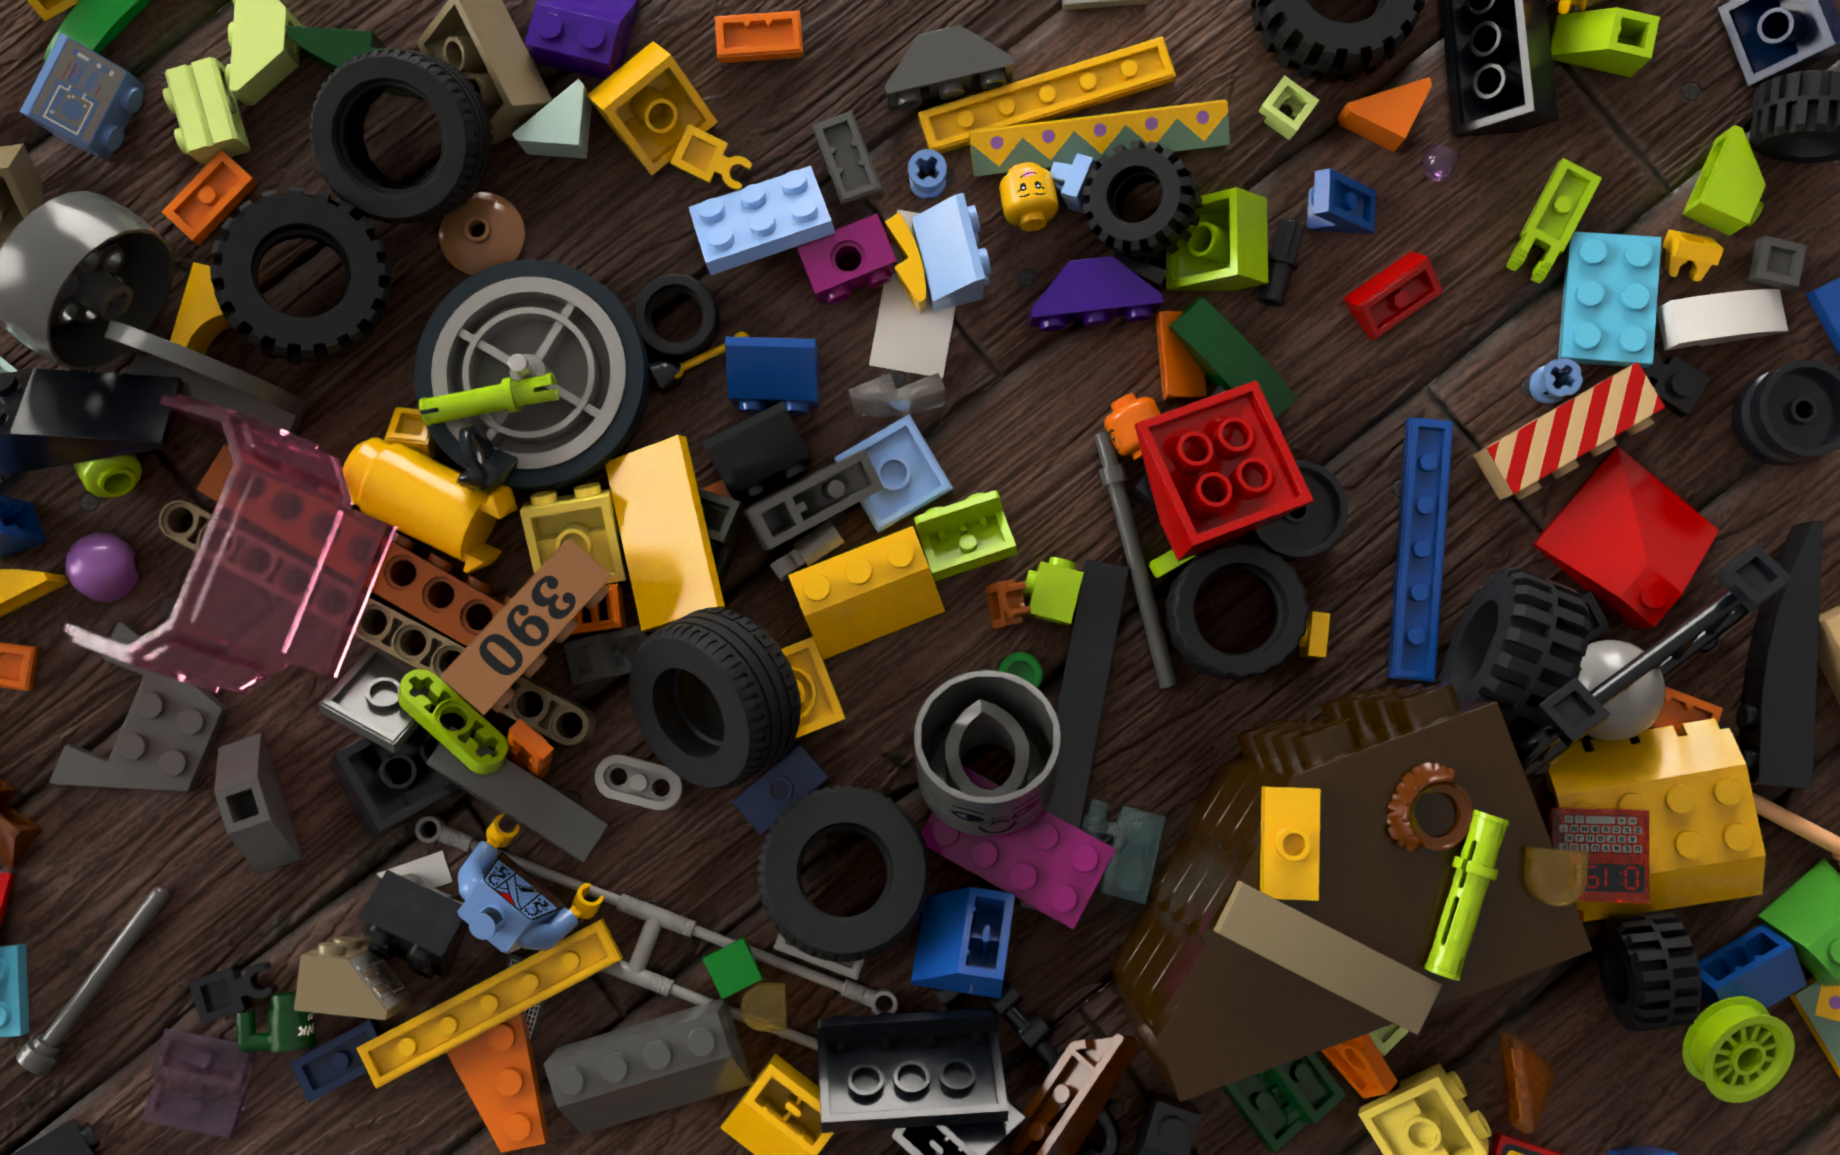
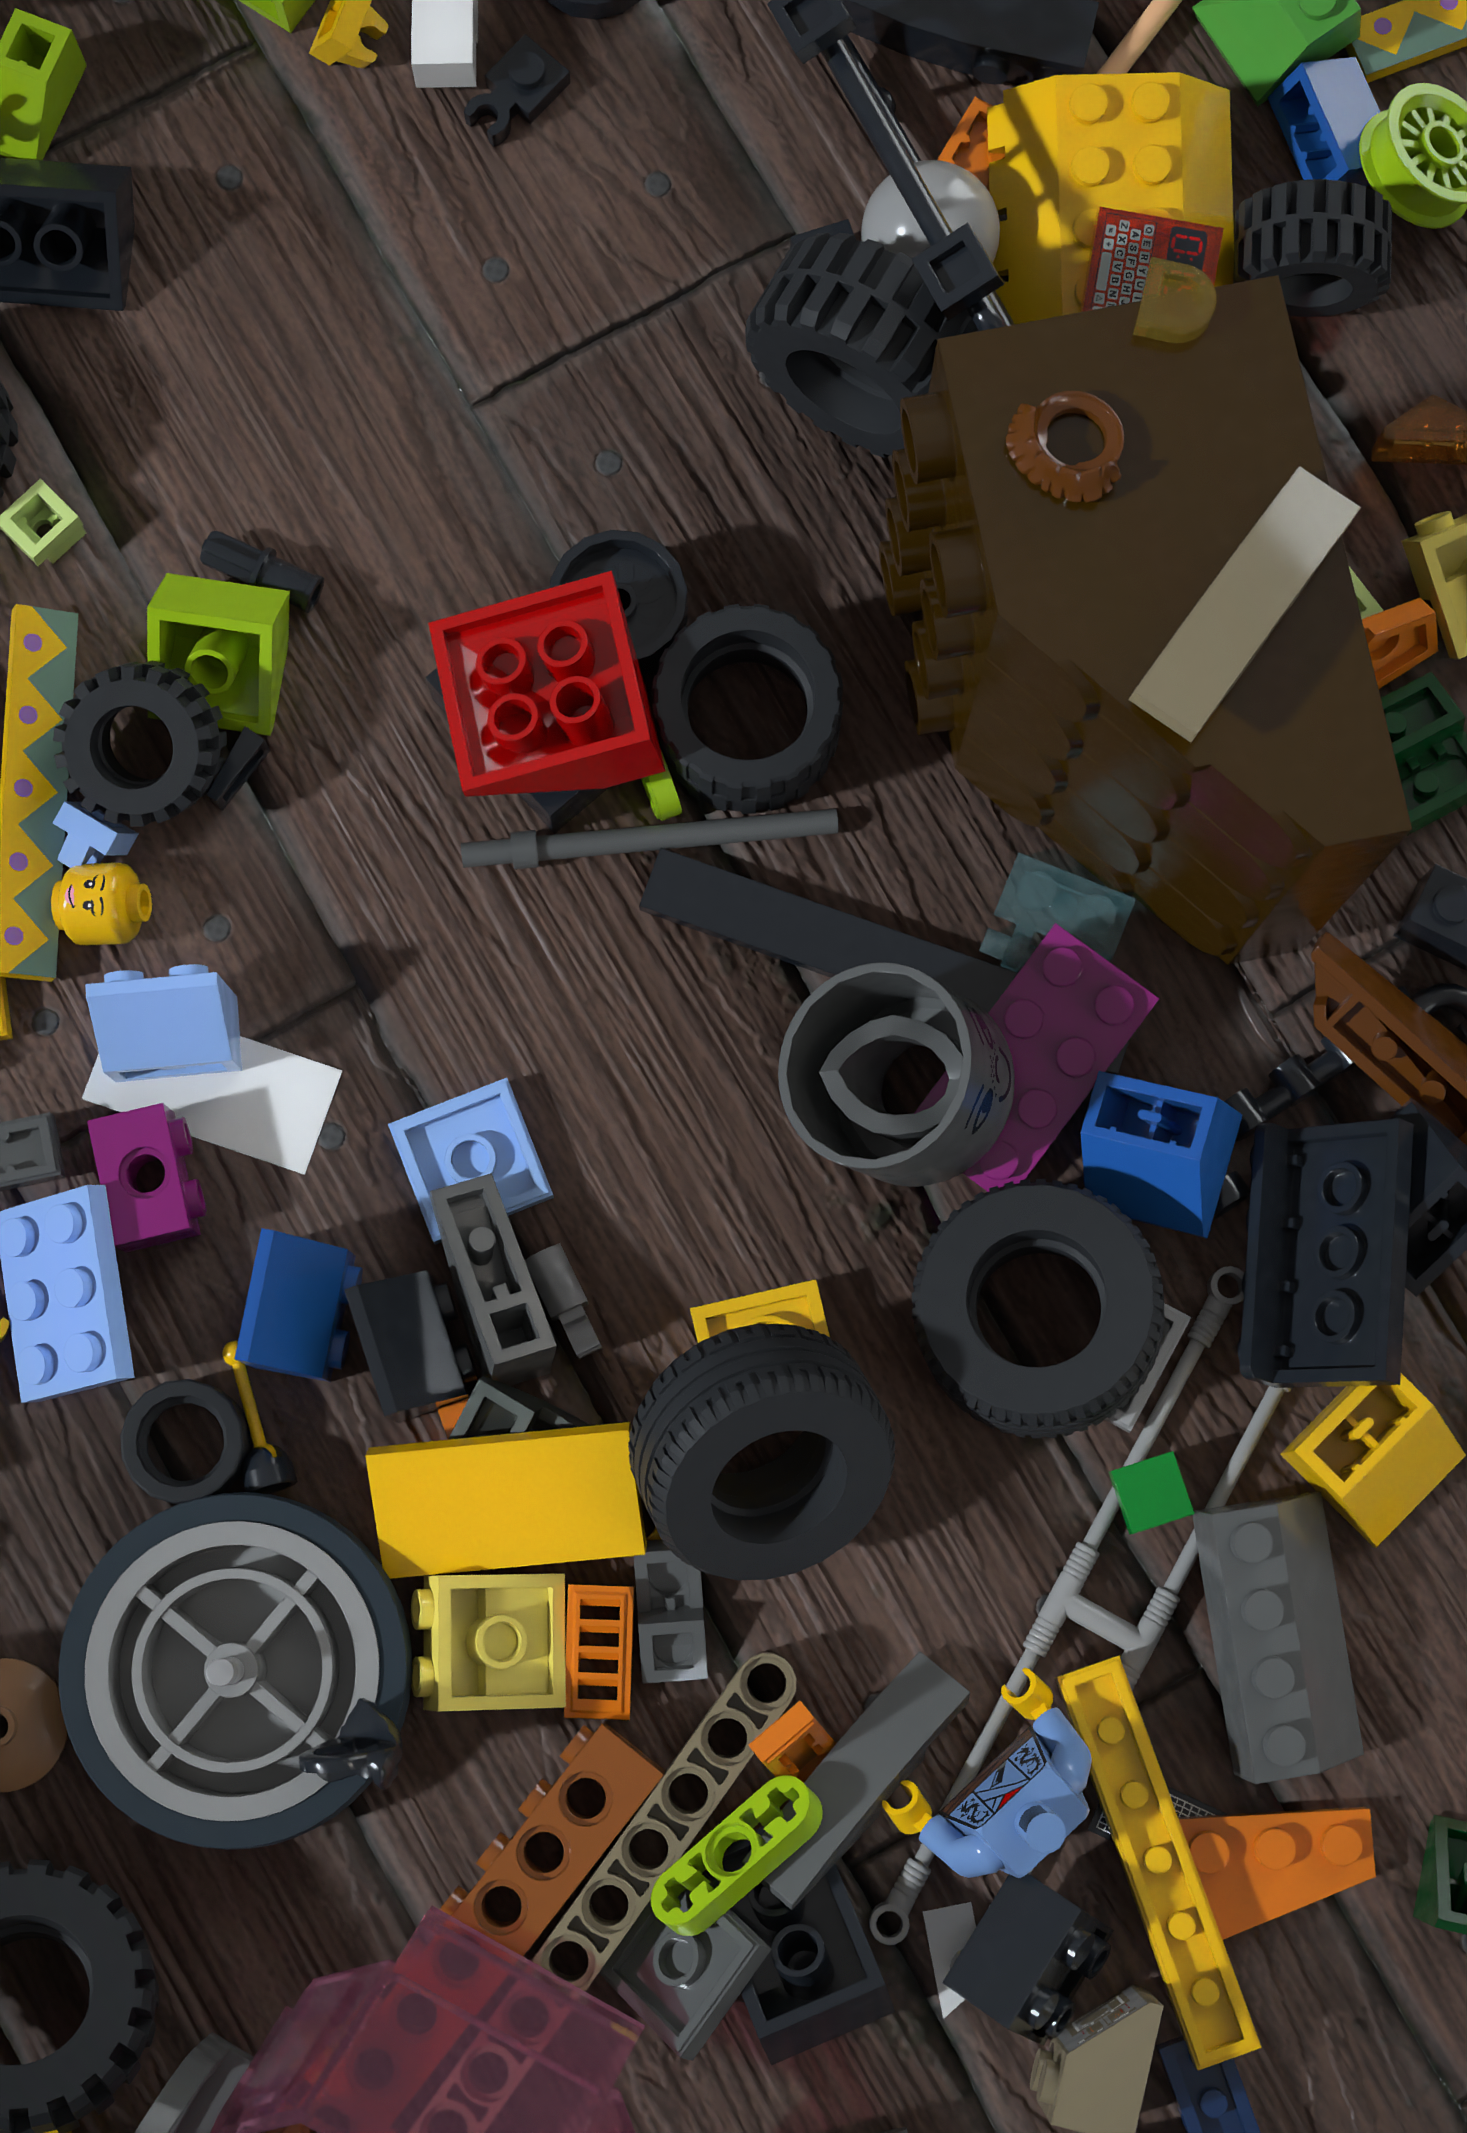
camera: 85 degrees left, 5 degrees down
(408, 429) = (293, 1875): yellow slope -> none
(426, 501) = (396, 1855): yellow piece -> none
(489, 399) = (264, 1731): lime pin -> none
(526, 626) = (616, 1714): medium nougat brick -> none
(640, 782) = (867, 1596): light grey plate -> none
(765, 1007) = (1212, 1453): clear yellow tile -> none
(779, 788) = (906, 1390): dark blue plate -> none
(867, 593) = (639, 1220): yellow slope -> none
(882, 398) = (363, 1144): clear slope -> none
(910, 271) = (184, 1086): yellow slope -> none
(925, 161) = (23, 1050): medium blue bush -> none
(965, 535) = (578, 1069): lime bracket -> none
(1006, 603) = (685, 1024): dark orange plate -> none
(1023, 666) = (776, 1017): green tile -> none
(1053, 590) = (678, 957): lime brick -> none
(1093, 293) = (259, 834): dark purple slope -> none
(1122, 422) = (454, 817): orange head -> none
(1179, 372) = (369, 730): orange slope -> none
(1228, 355) = (380, 663): dark green slope -> none
(1290, 843) = (1087, 629): yellow plate -> none
(1315, 641) = (806, 605): yellow plate -> none
(1340, 204) = (194, 477): blue slope -> none
(1386, 115) = (79, 390): orange slope -> none
(1394, 294) = (333, 427): red slope -> none
(1420, 550) = (697, 451): blue tile -> none
(1439, 162) = (158, 334): clear purple hinge -> none
(1466, 894) = (1185, 415): lime pin -> none
(1555, 216) = (265, 196): lime hinge -> none
(1567, 382) = (497, 217): medium blue bush -> none
(1568, 432) = (568, 229): brick -> none
(1610, 299) = (393, 144): medium azure plate -> none
(1628, 540) = (729, 179): red slope -> none

